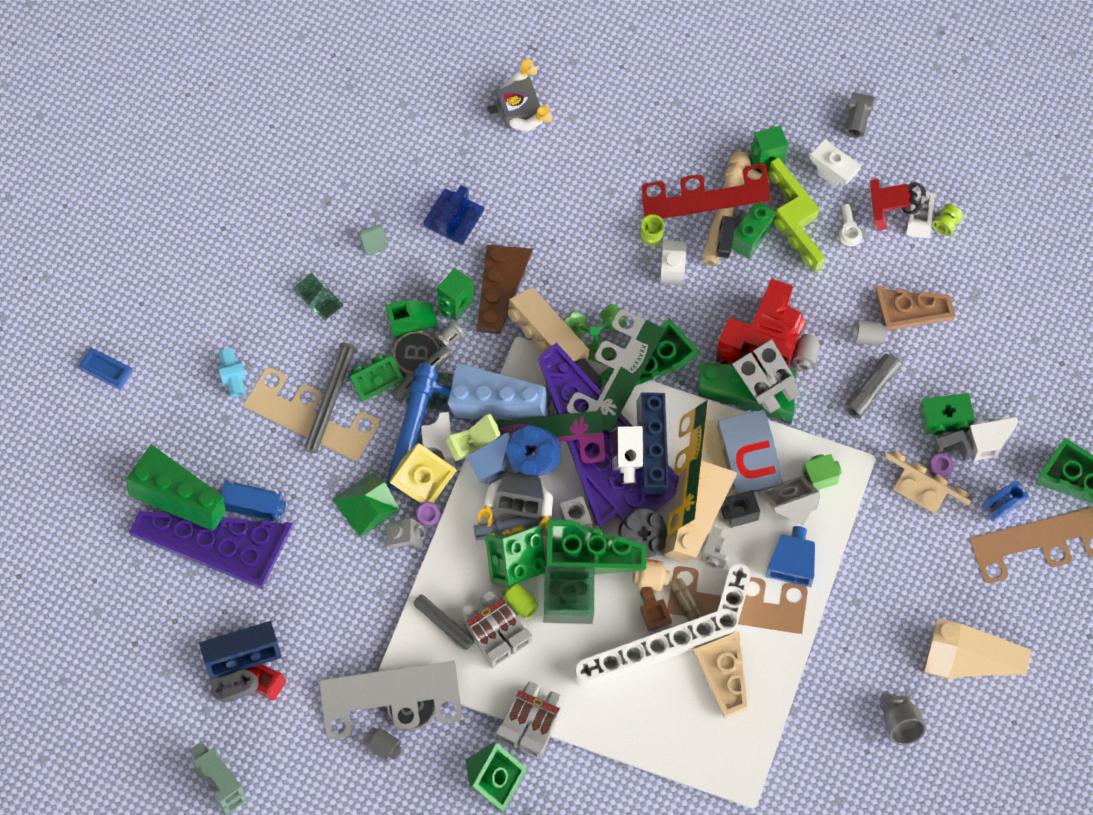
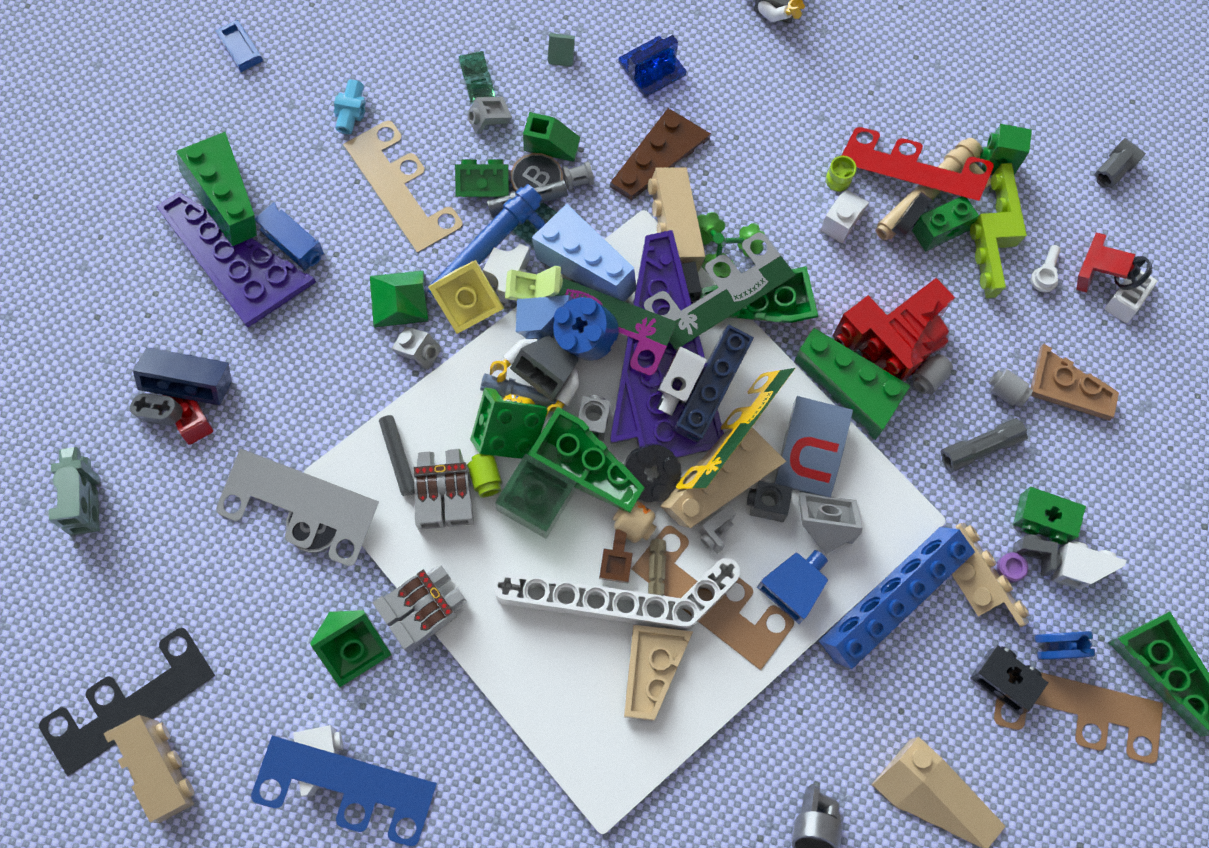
camera: 25 degrees right, 5 degrees up
(330, 397) = (427, 176): dark grey axle -> none
(346, 321) = (488, 112): none -> light grey bracket
(383, 744) = (261, 548): dark grey brick -> none
(427, 513) = (451, 338): medium lavender tile -> none
(455, 295) = (605, 137): green brick -> none
(768, 383) = (878, 384): light grey hips -> none
(822, 471) = (879, 507): bright green brick -> none
(834, 164) = (1066, 199): white brick -> none
(869, 529) = (896, 597): none -> blue brick
(948, 218) = (1162, 311): lime wheel -> none
(968, 549) = (994, 676): none -> black brick

